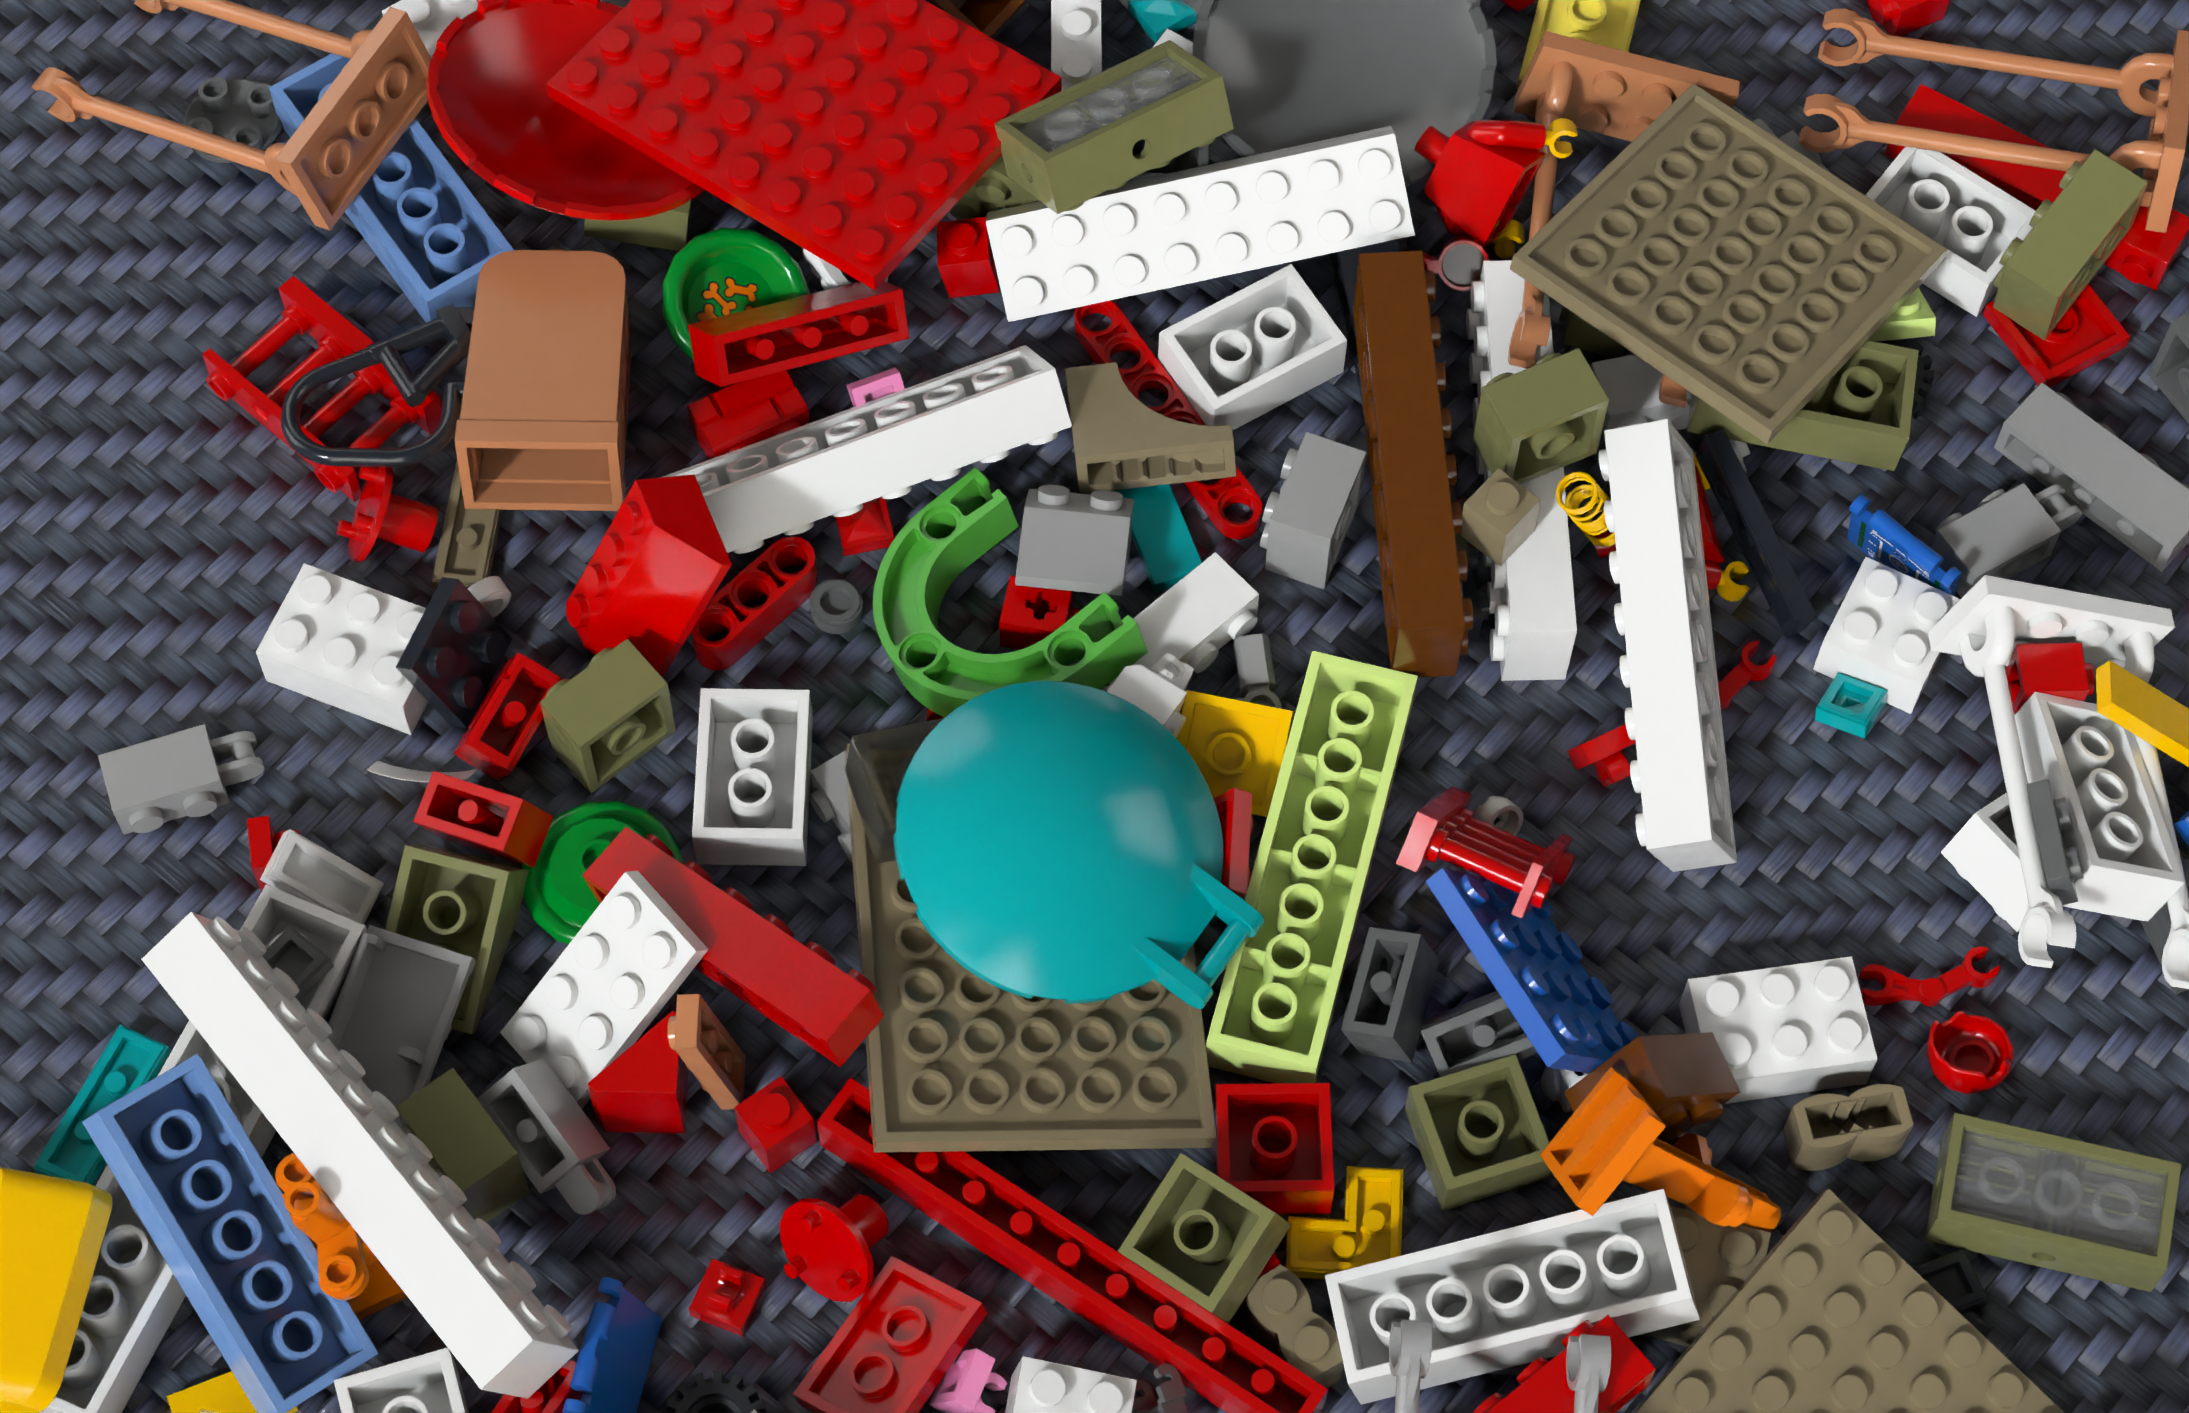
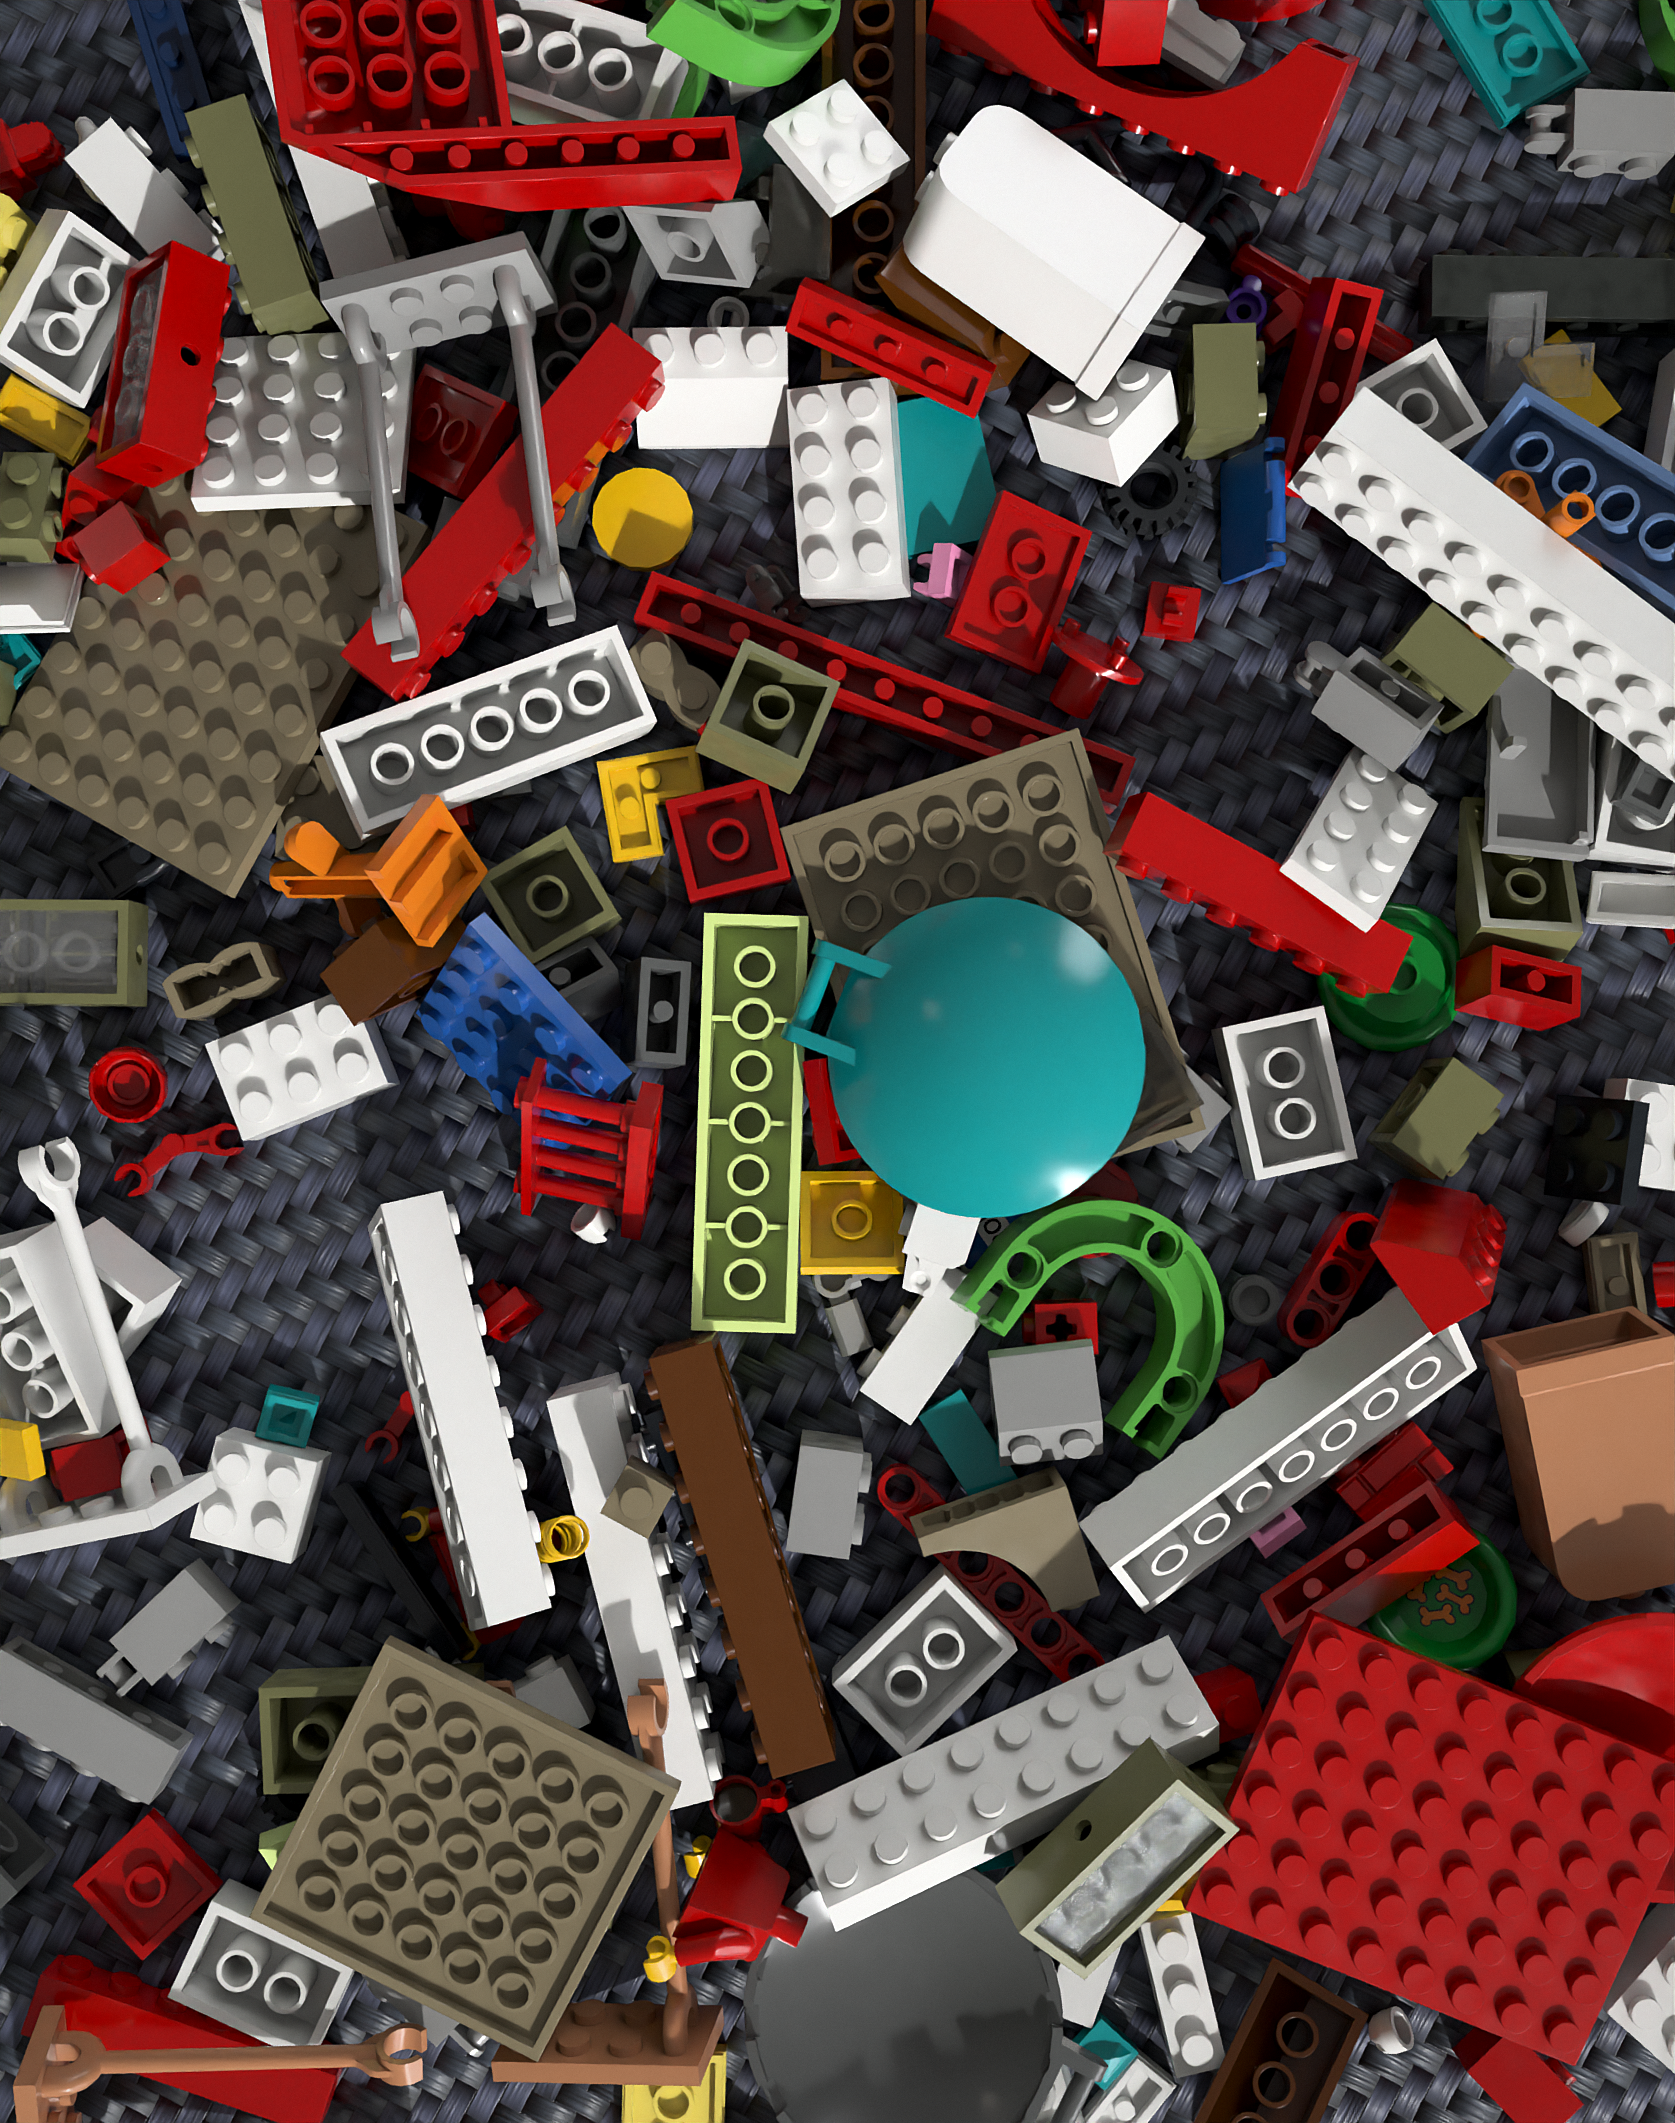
camera: 170 degrees right, 25 degrees up
(412, 775) = (1587, 1033): white sticker -> none
(507, 717) = (1530, 1092): red brick -> none
(643, 1087) = (1289, 769): red slope -> none
(708, 1050) = (1251, 795): nougat plate -> none
(775, 1124) = (1172, 766): red brick -> none
(1541, 417) = (618, 1610): olive brick -> none
(1897, 548) = (256, 1578): blue piece -> none
(2051, 820) = (61, 1288): dark grey plate -> none
(2067, 243) = (132, 1964): olive brick -> none

